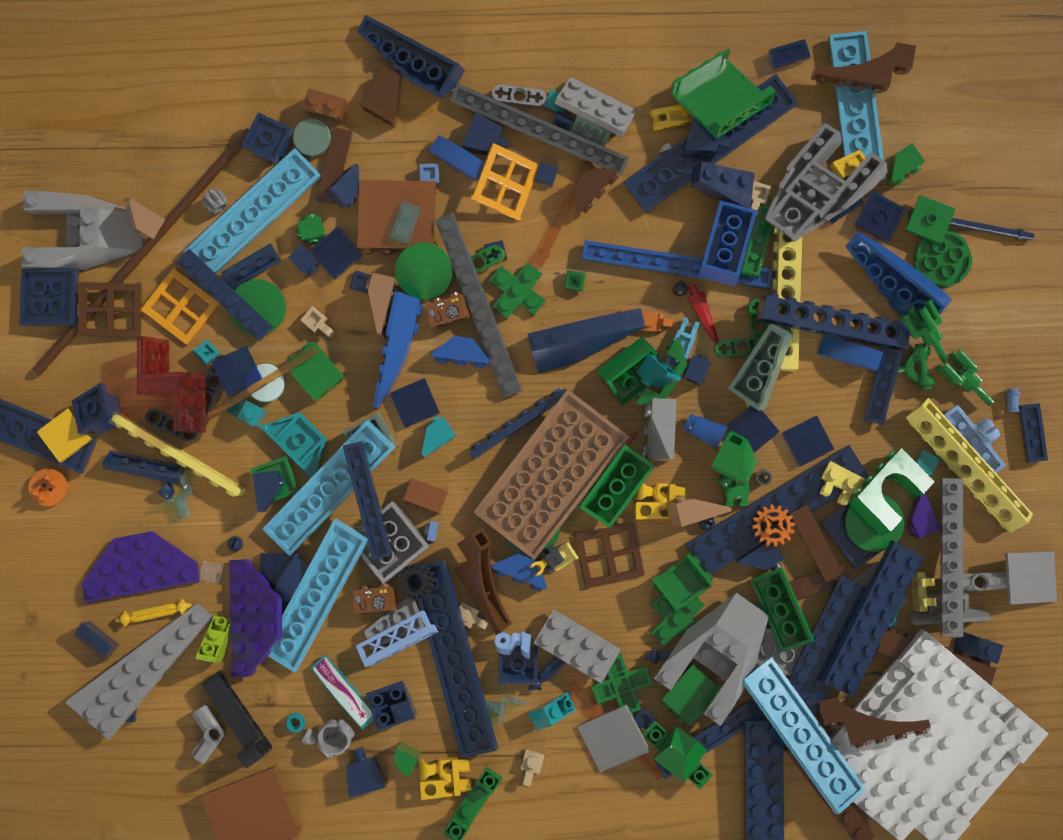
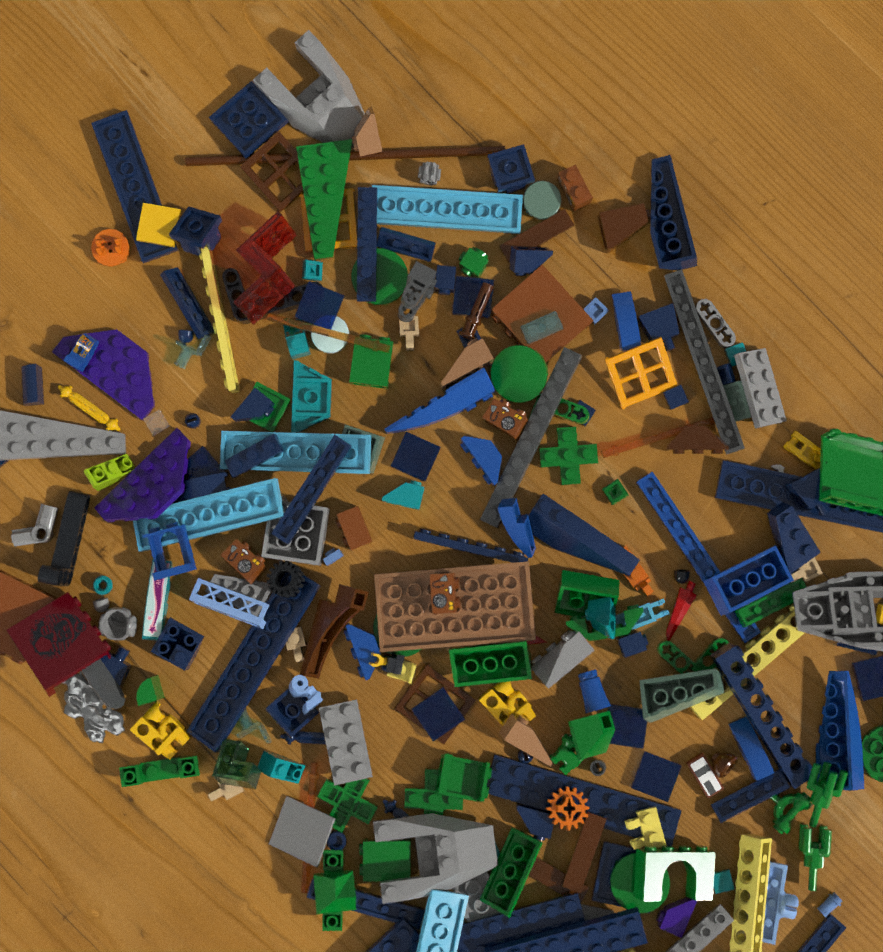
camera: 45 degrees right, 0 degrees up
(106, 579) = (82, 352): none -> blue leg
(148, 284) = (323, 183): none -> green wing
(293, 288) = (418, 287): none -> dark grey brick
(296, 651) = (154, 538): none -> blue panel
(303, 521) = (254, 455): none -> dark blue plate
(306, 794) = (58, 641): none -> dark red panel
(353, 269) = (472, 321): none -> reddish brown pin
(367, 811) = (87, 698): none -> dark grey plant
(520, 747) = (232, 766): none -> clear green brick
(534, 374) = (517, 525): none -> blue slope
(534, 472) = (444, 593): none -> dark orange brick
(618, 558) = (438, 714): none -> clear blue tile
(839, 404) = (705, 775): none -> slope
(842, 383) = (723, 763): none -> reddish brown brick

